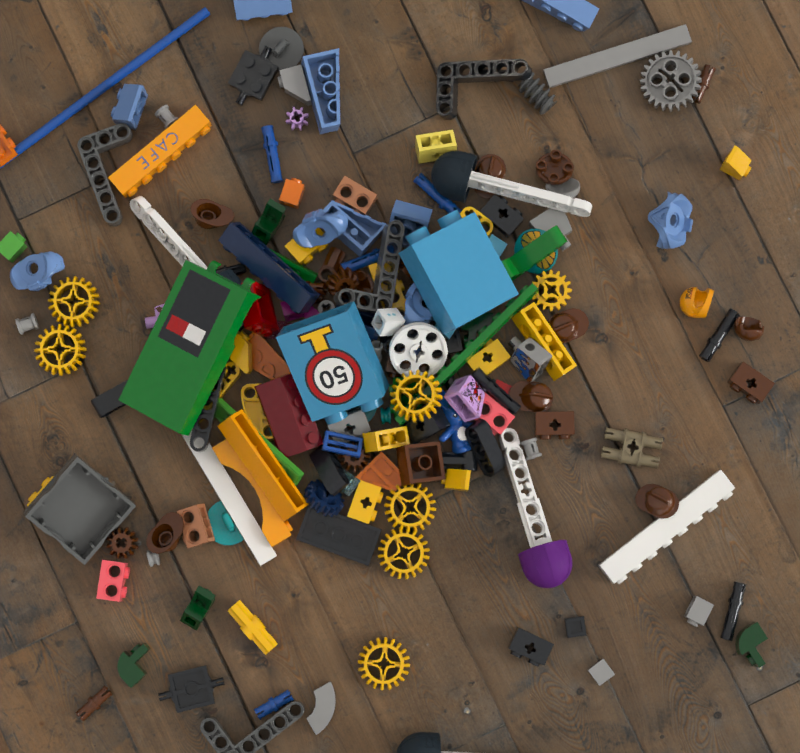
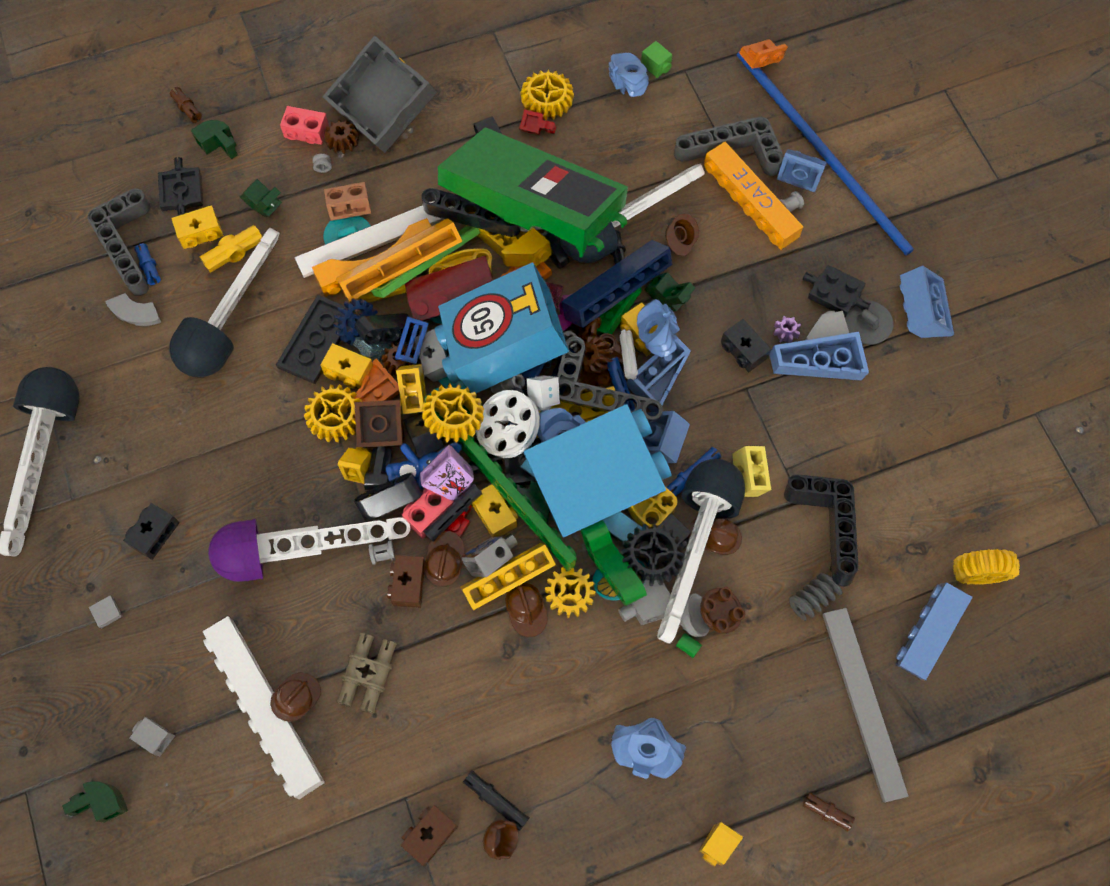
camera: 95 degrees right, 15 degrees down
(27, 323) = (575, 65): light grey bush -> none
(57, 300) = (584, 105): yellow gear -> none
(93, 359) = (534, 122): none -> red plate
(166, 533) = (341, 171): reddish brown piece -> none
(224, 657) = (197, 227): none -> yellow brick
(261, 316) = (569, 253): red window -> none
(270, 145) = (744, 303): blue pin -> none
(292, 193) = (702, 318): orange brick -> none
(321, 145) = (745, 345): none -> black brick
(340, 253) = (628, 354): none -> white axle
(357, 192) = (698, 384): nougat brick -> none
(365, 632) = (200, 346): none -> black piece
(382, 680) = (169, 378): yellow gear -> none
(396, 538) = (266, 405): yellow gear -> none
(511, 223) = (662, 554): none -> black gear
(575, 627) = (165, 587): black tile -> none
(585, 192) = (688, 645): none -> green hinge
(683, 69) = (849, 785): light grey gear -> none
(696, 302) = (540, 771): light orange helmet -> none
(733, 611) = (150, 785): black pin -> none

